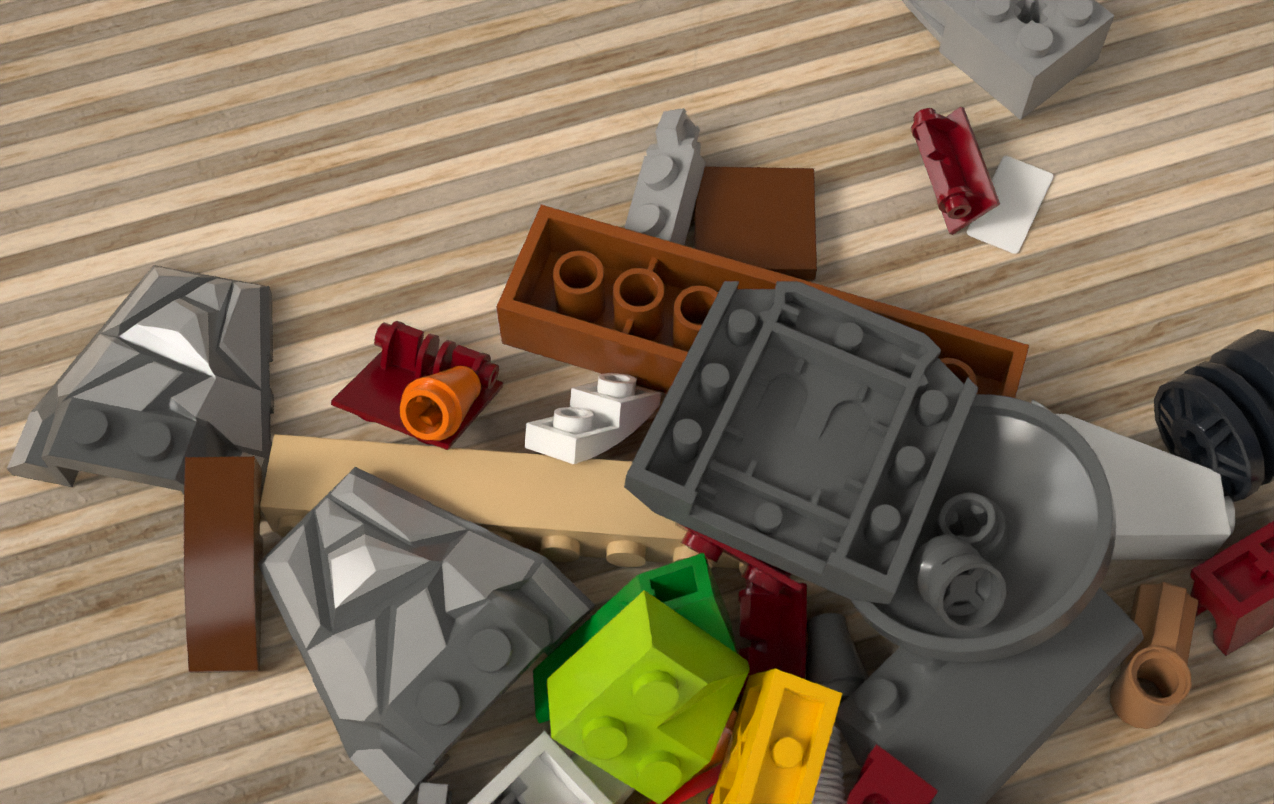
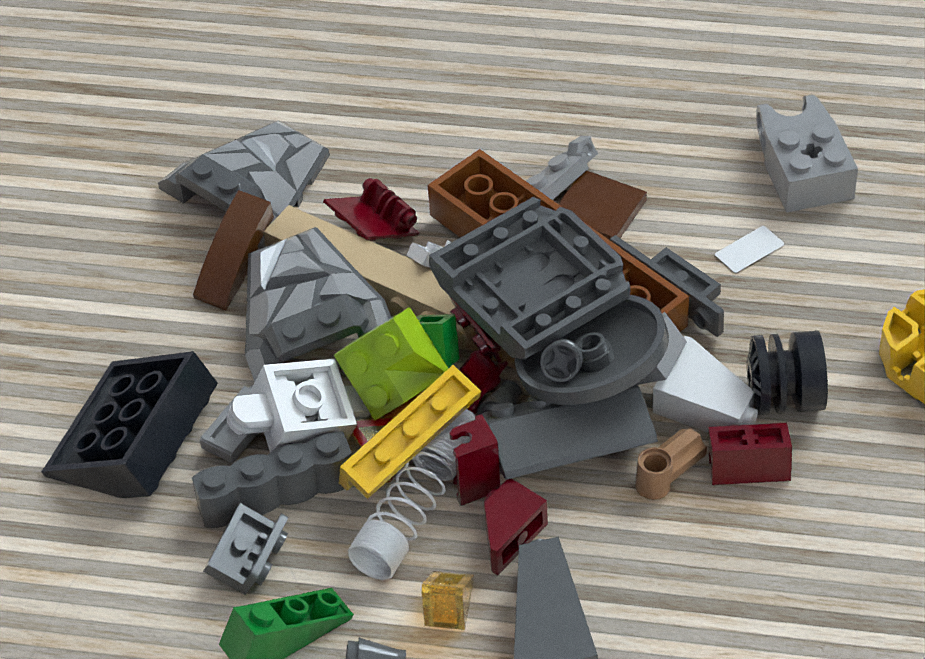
camera: 30 degrees right, 15 degrees down
(439, 402) = (373, 215): orange cone -> none
(954, 166) = (721, 215): dark red hinge -> none
(980, 306) = (690, 280): none -> dark grey bracket

